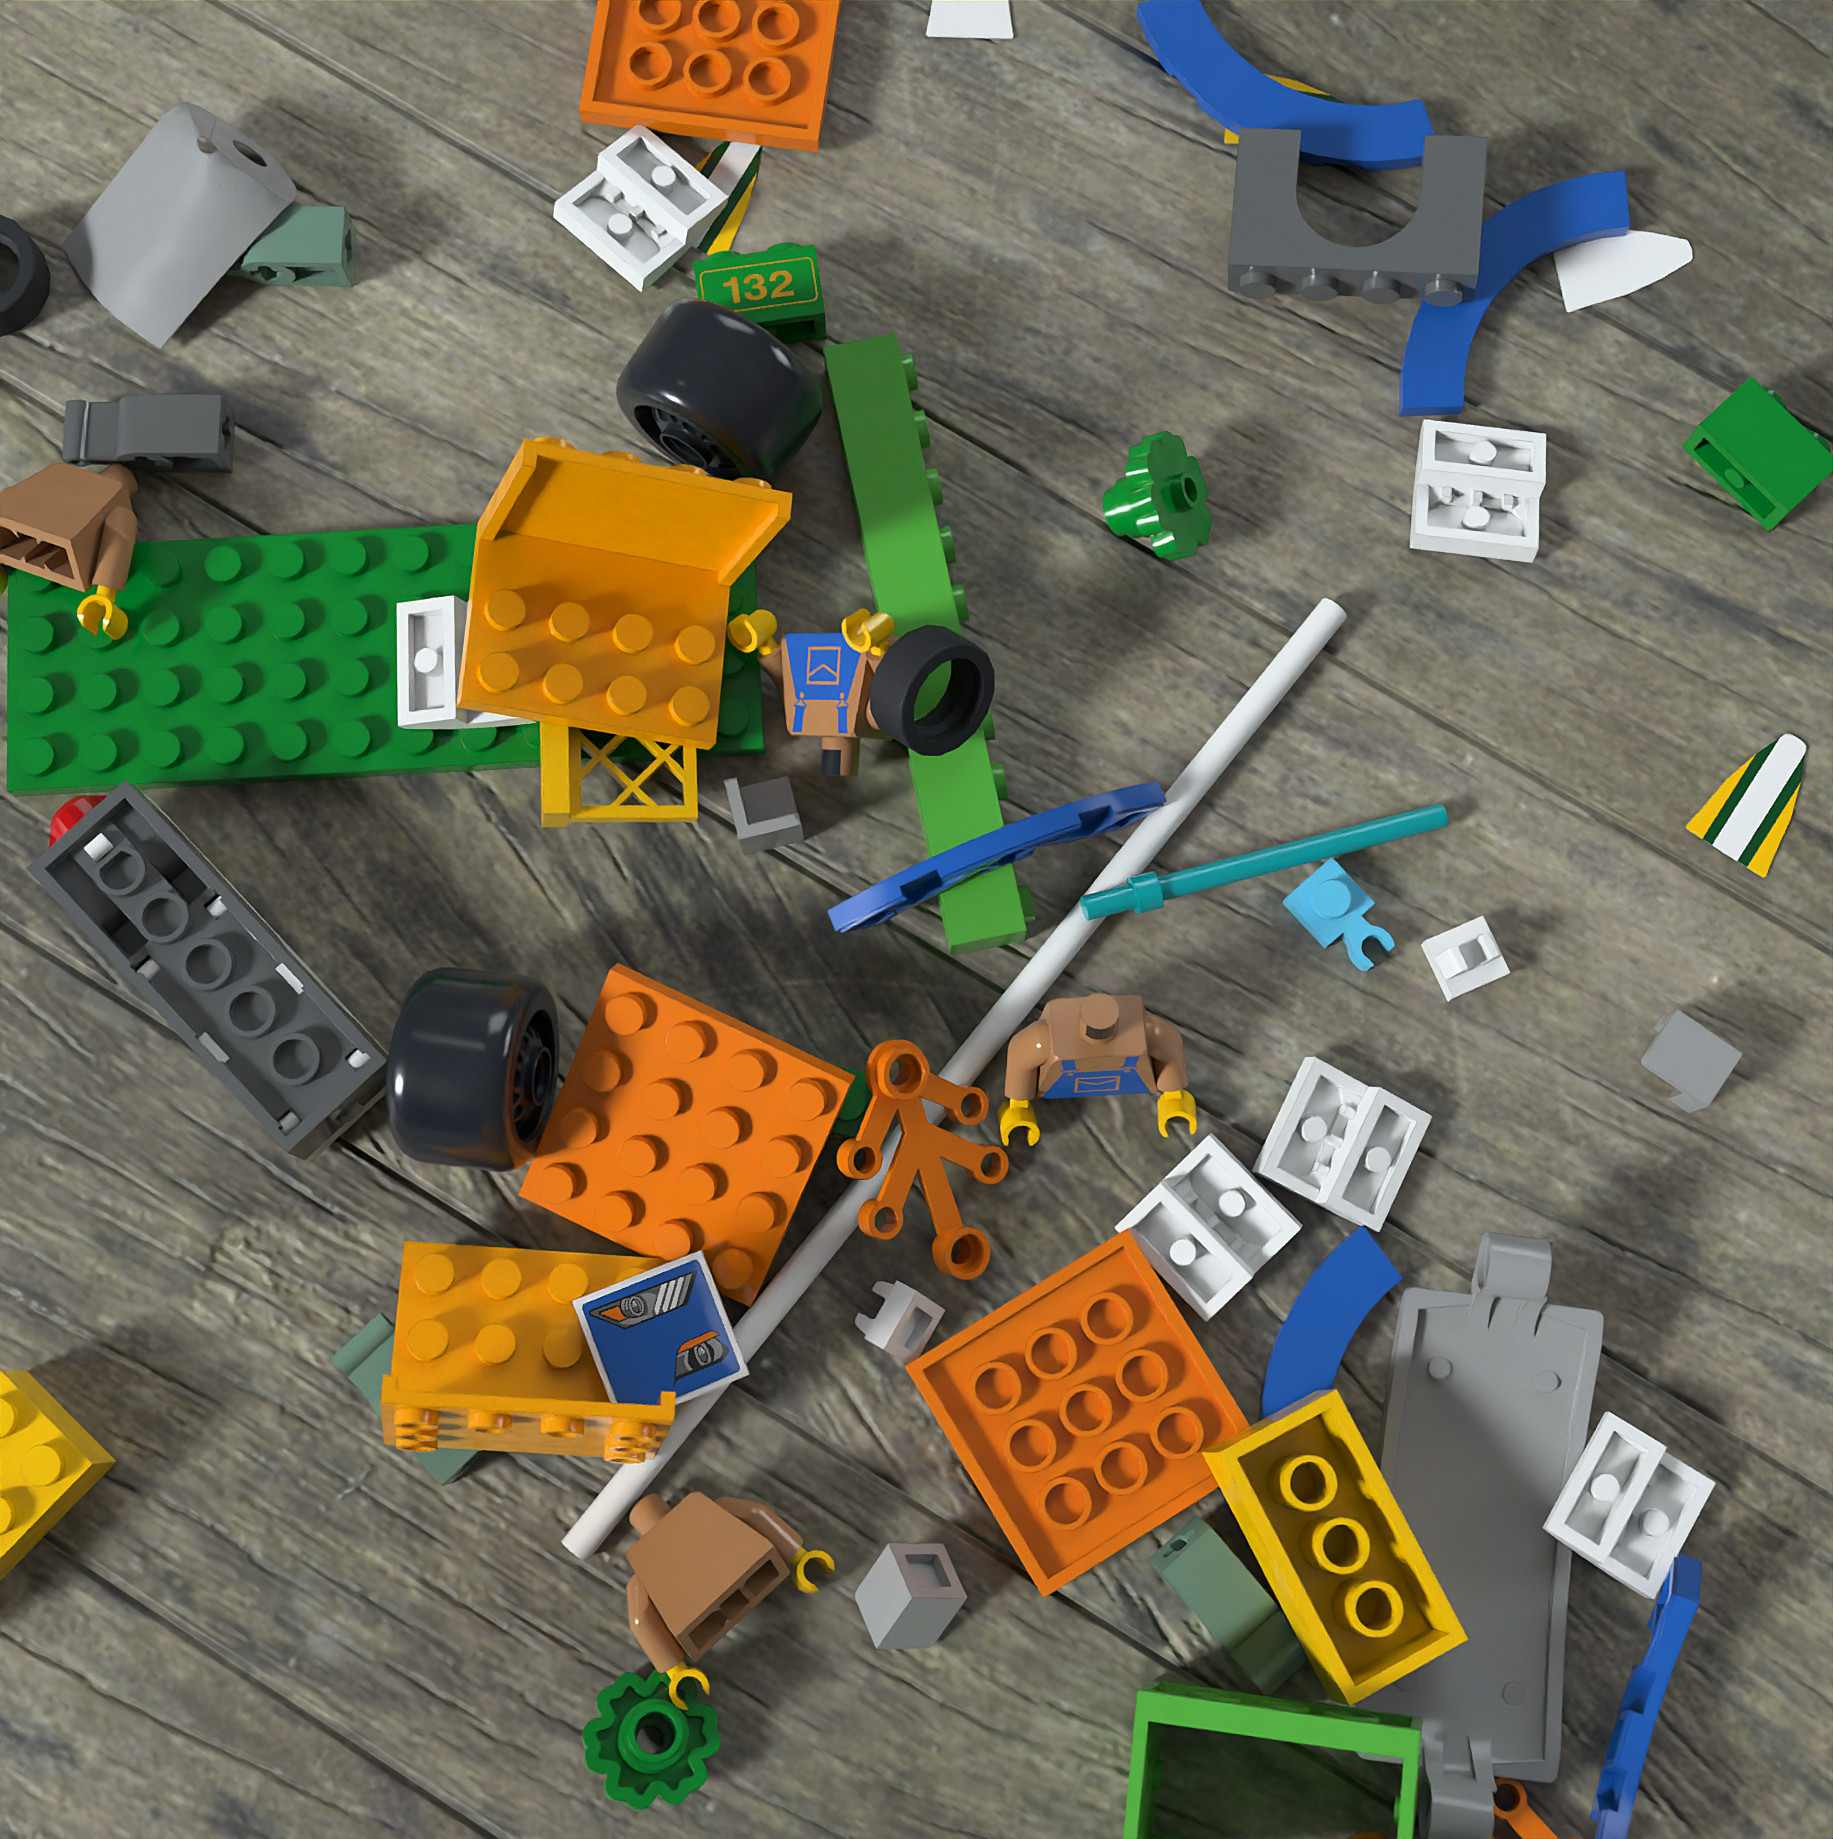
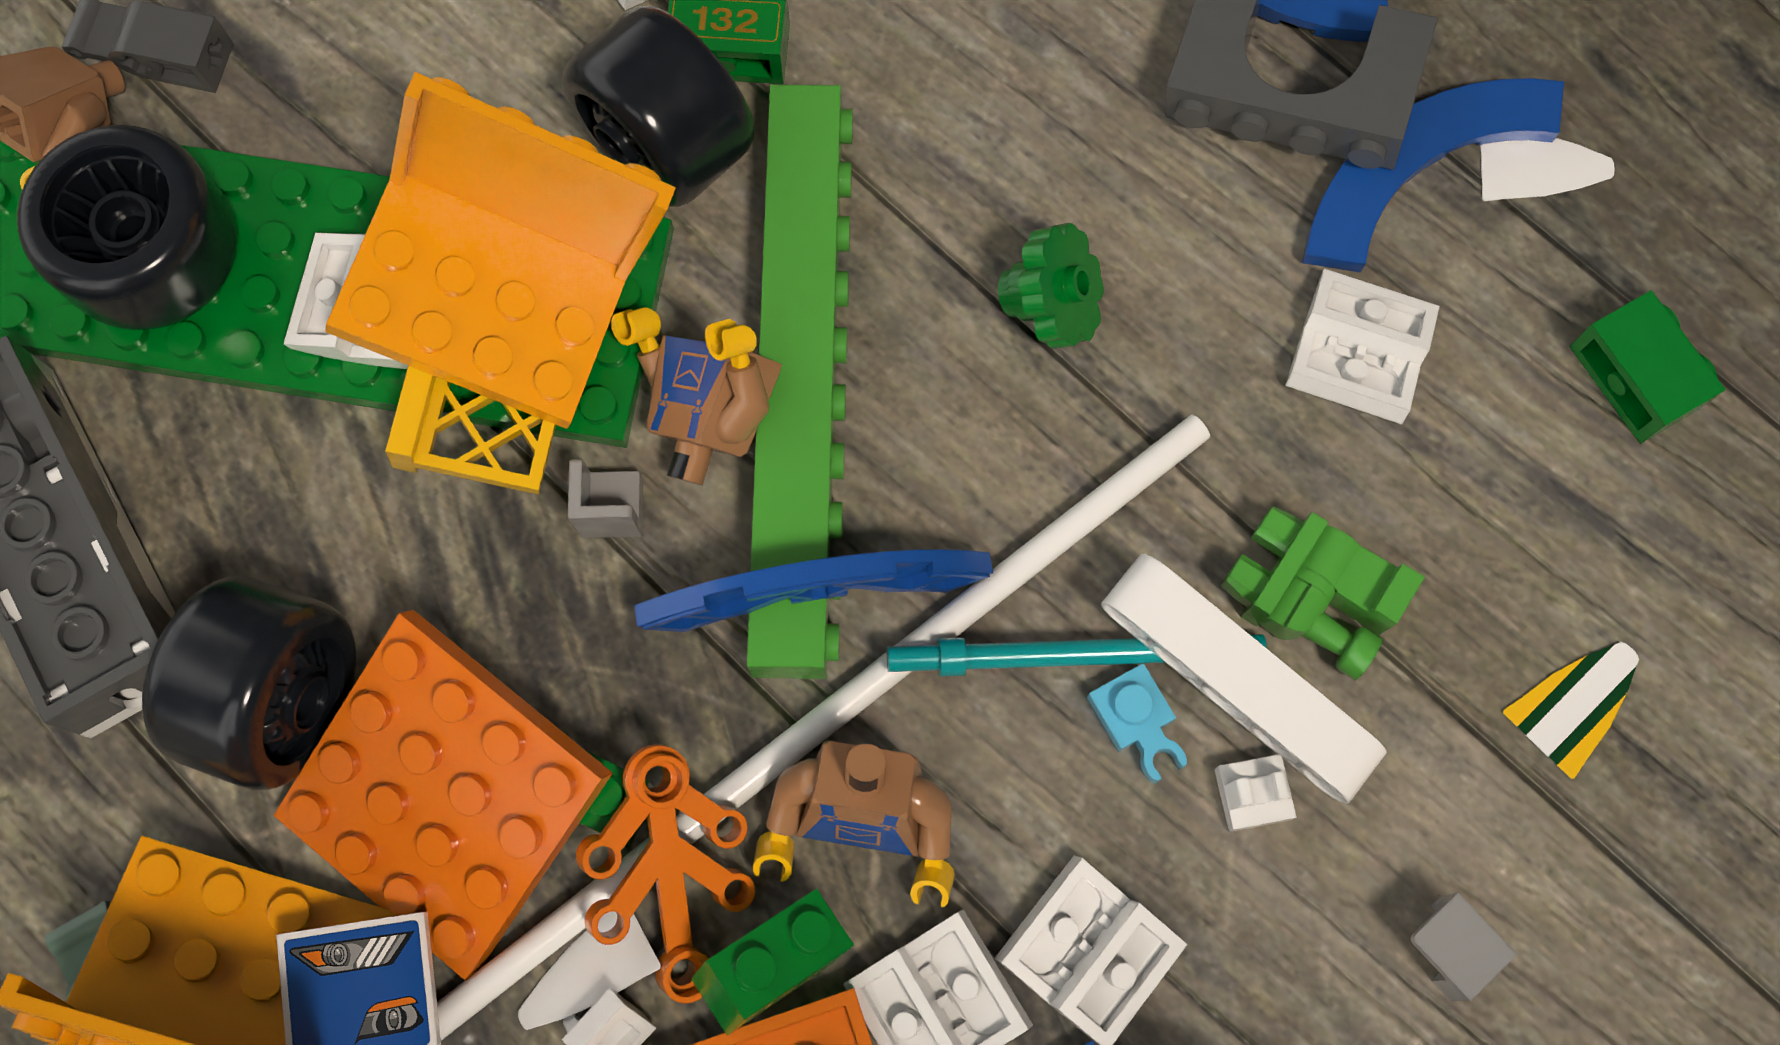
camera: 15 degrees right, 5 degrees down
(187, 605) = (127, 227): none -> black wheel
(867, 1274) = (588, 972): none -> white sticker
(905, 671) = (755, 386): black tyre -> none
(1046, 1220) = (771, 961): none -> green brick
(1432, 850) = (1244, 678): none -> white beam
(1476, 730) = (1317, 569): none -> bright green hips

